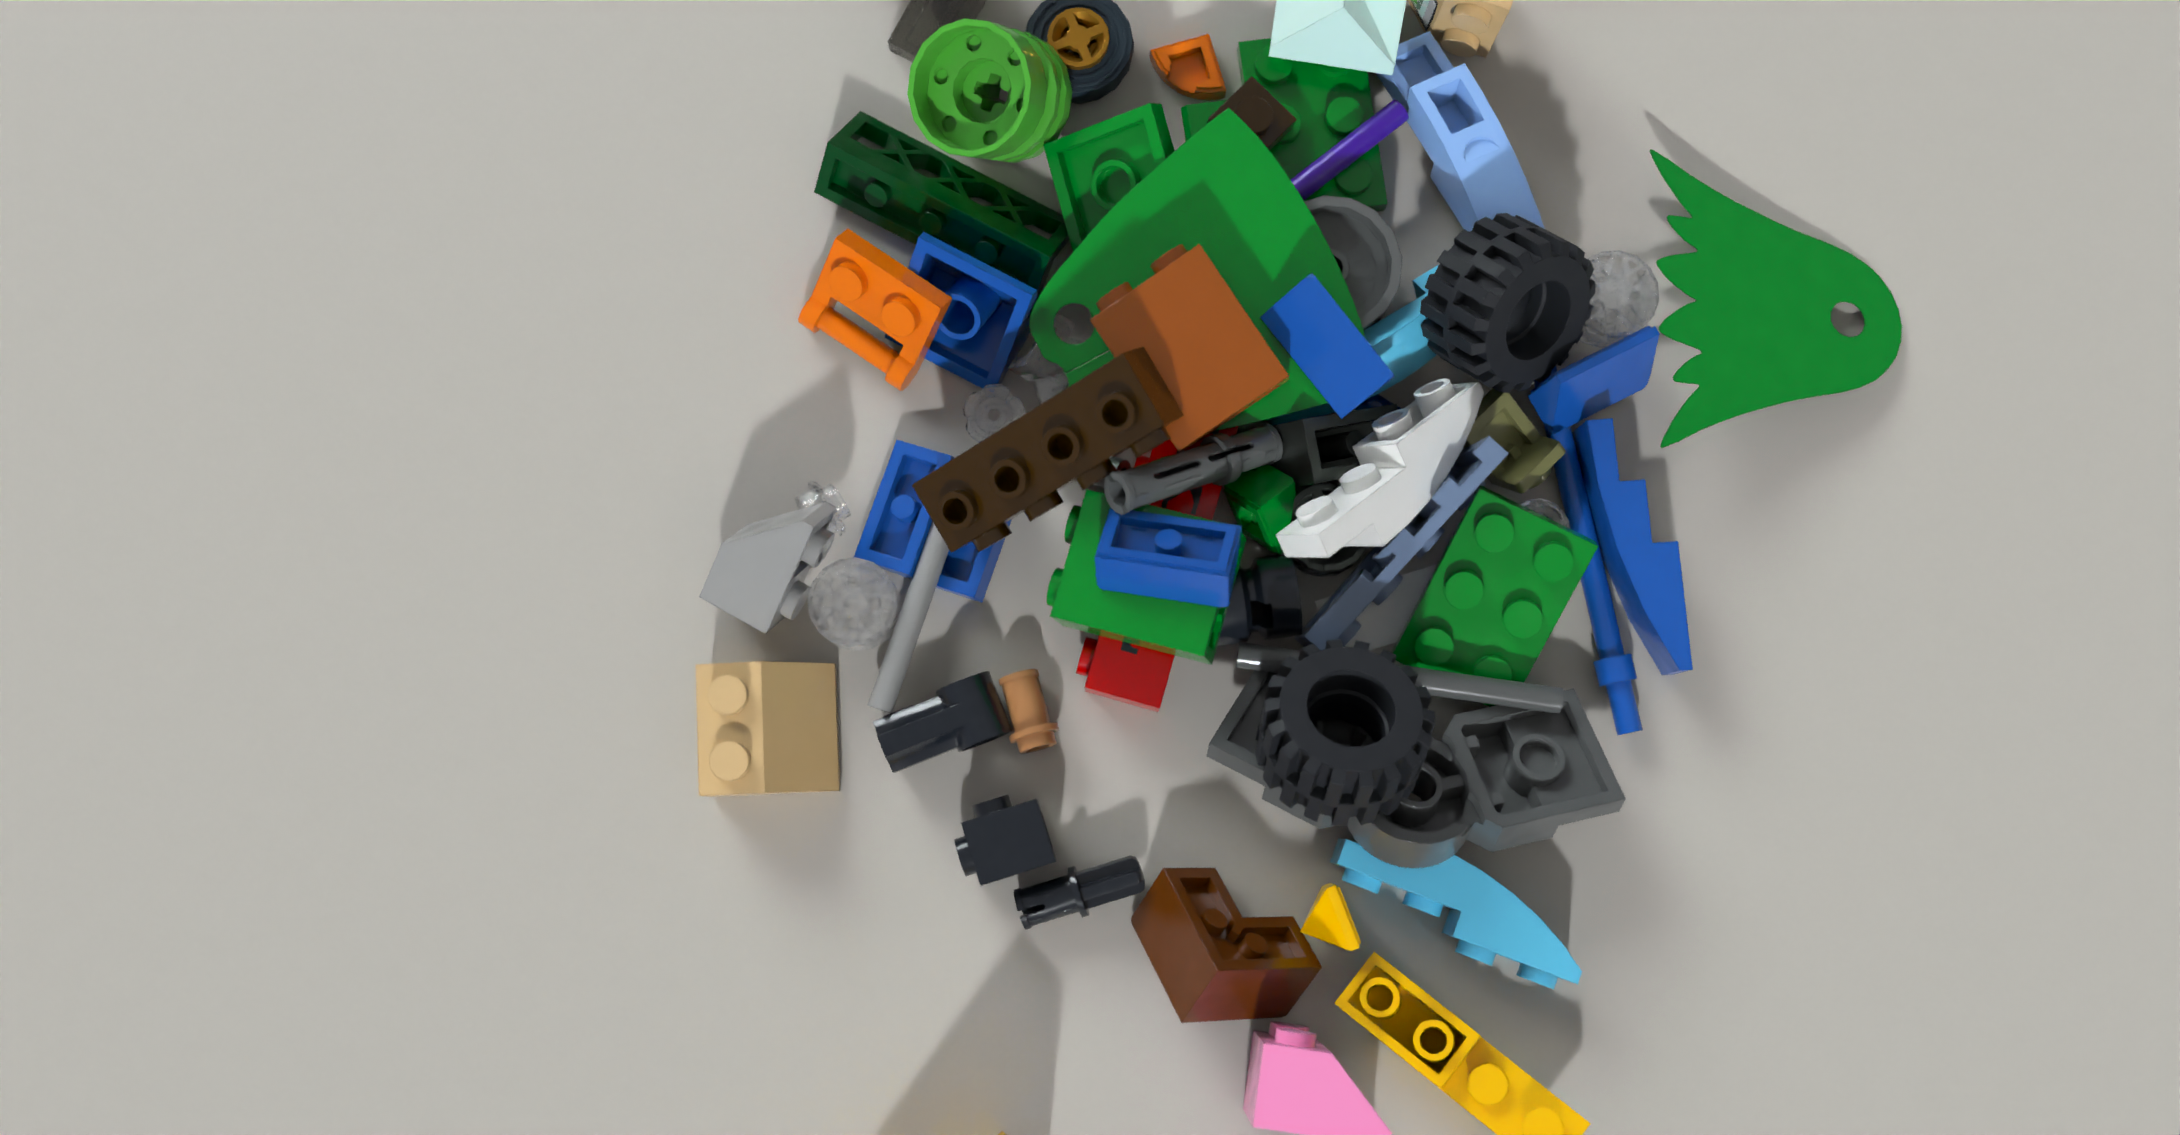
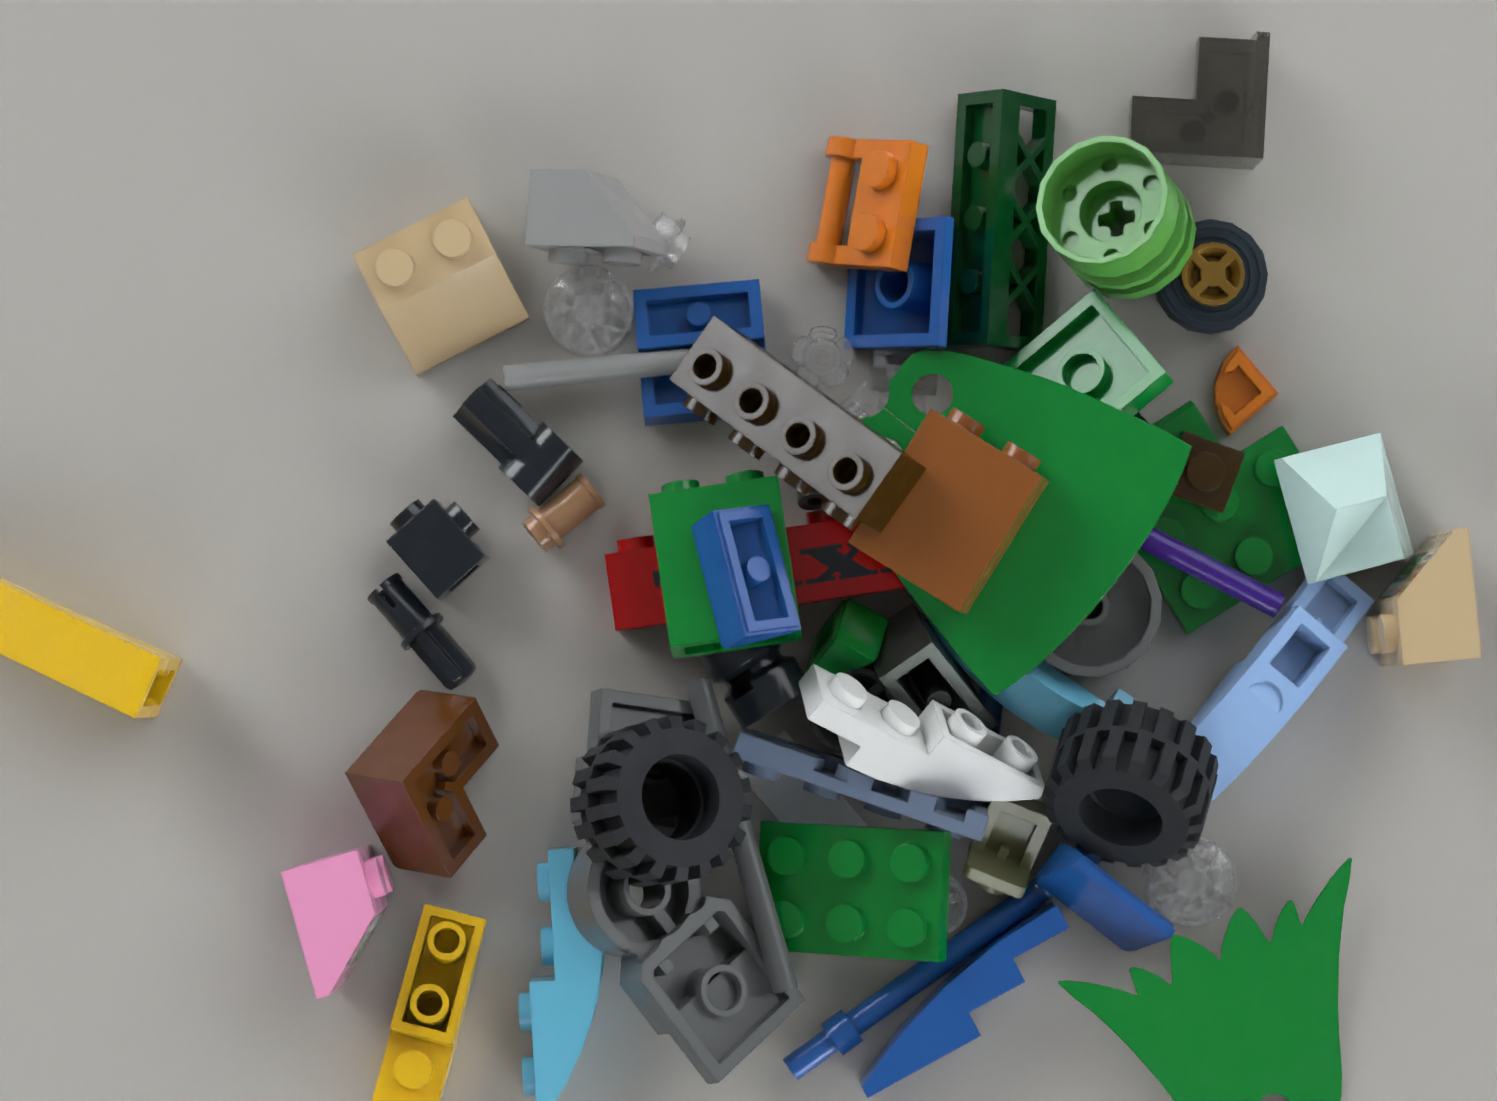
camera: 65 degrees right, 5 degrees up
(1216, 461) = (888, 606): dark grey pin -> none
(1327, 346) = (1008, 635): blue slope -> none
(1331, 919) = (498, 870): yellow slope -> none

